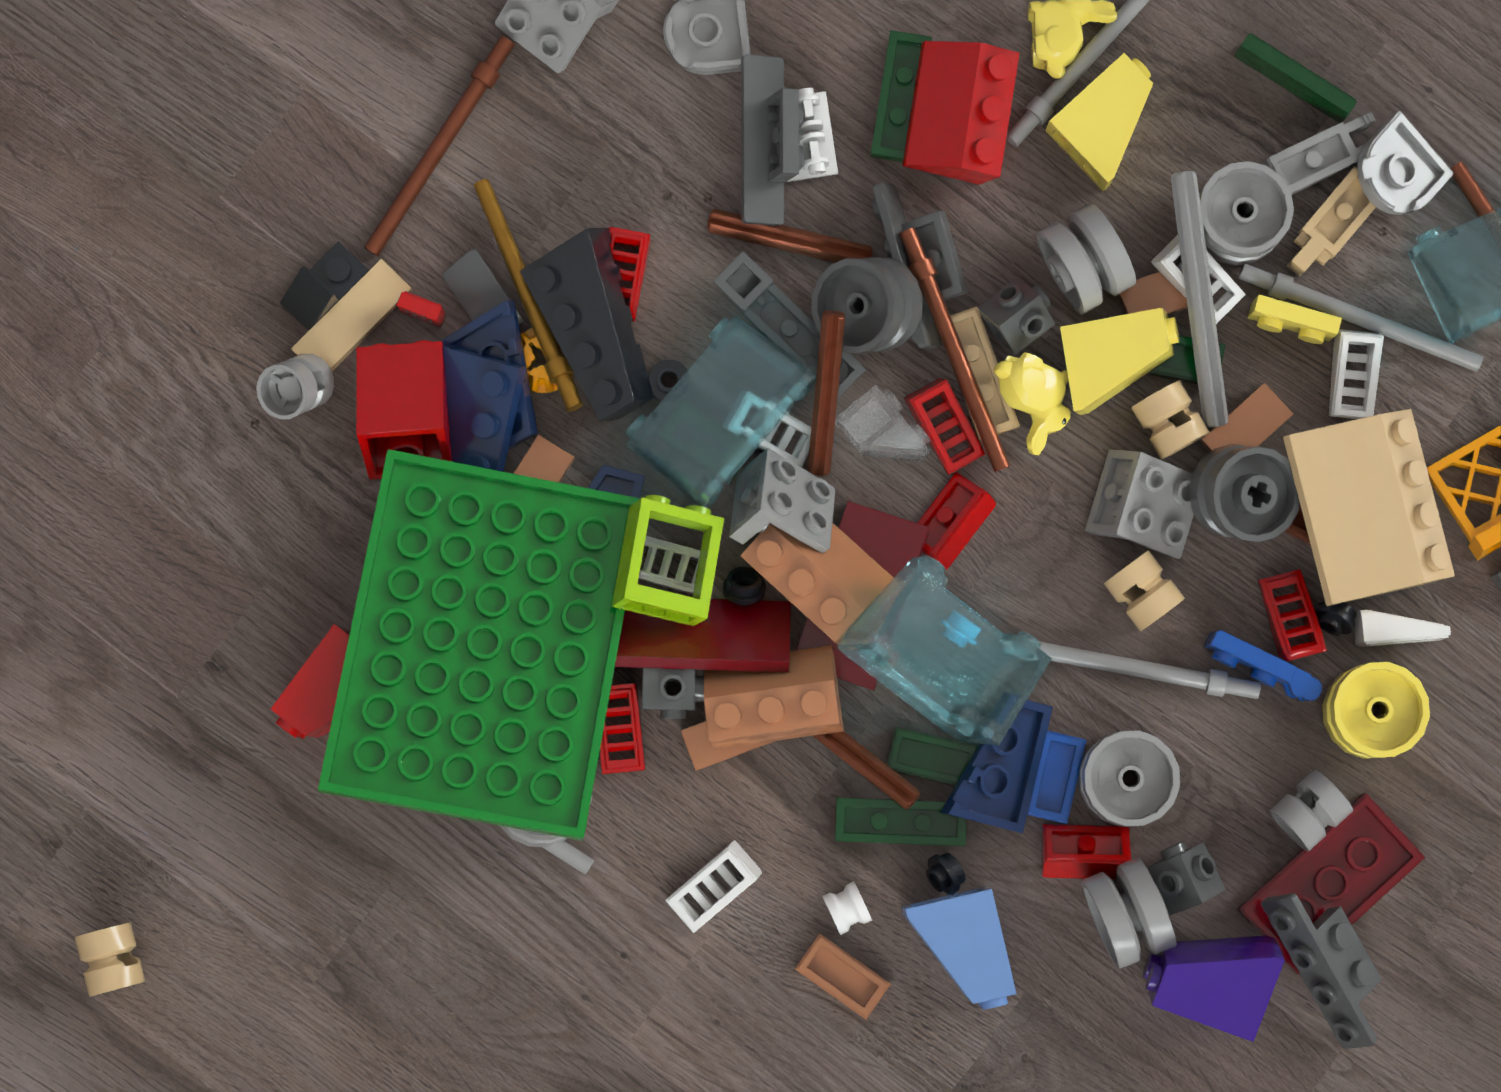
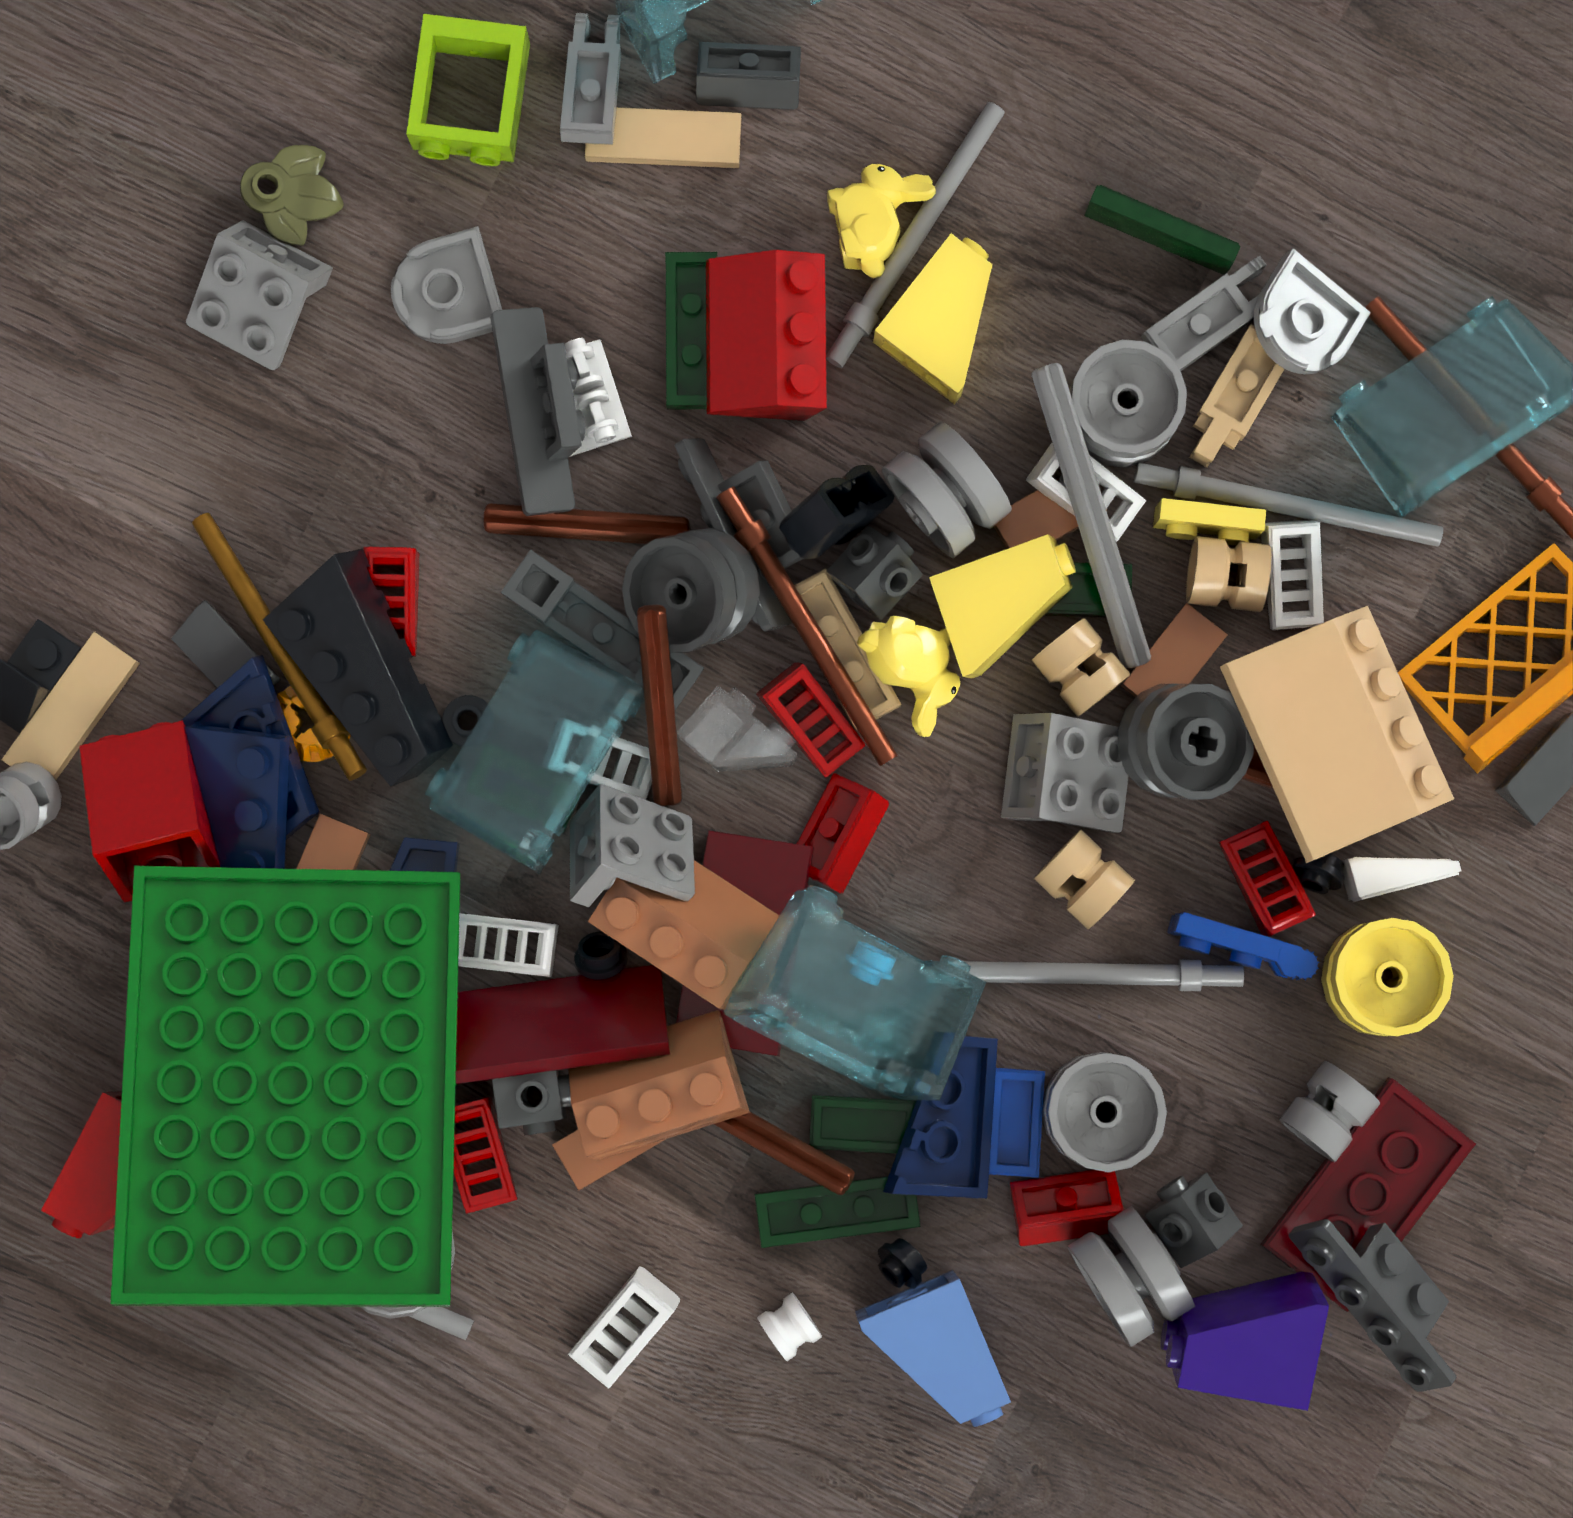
camera: 15 degrees left, 0 degrees up
(421, 309) = (152, 684): red tile -> none
(484, 77) = (183, 389): copper bar -> none
(657, 602) = (490, 997): lime window -> none
(842, 976) = (798, 1409): nougat tile -> none
(994, 261) = (836, 511): none -> black brick
(1288, 359) = (1210, 571): none -> tan wheel

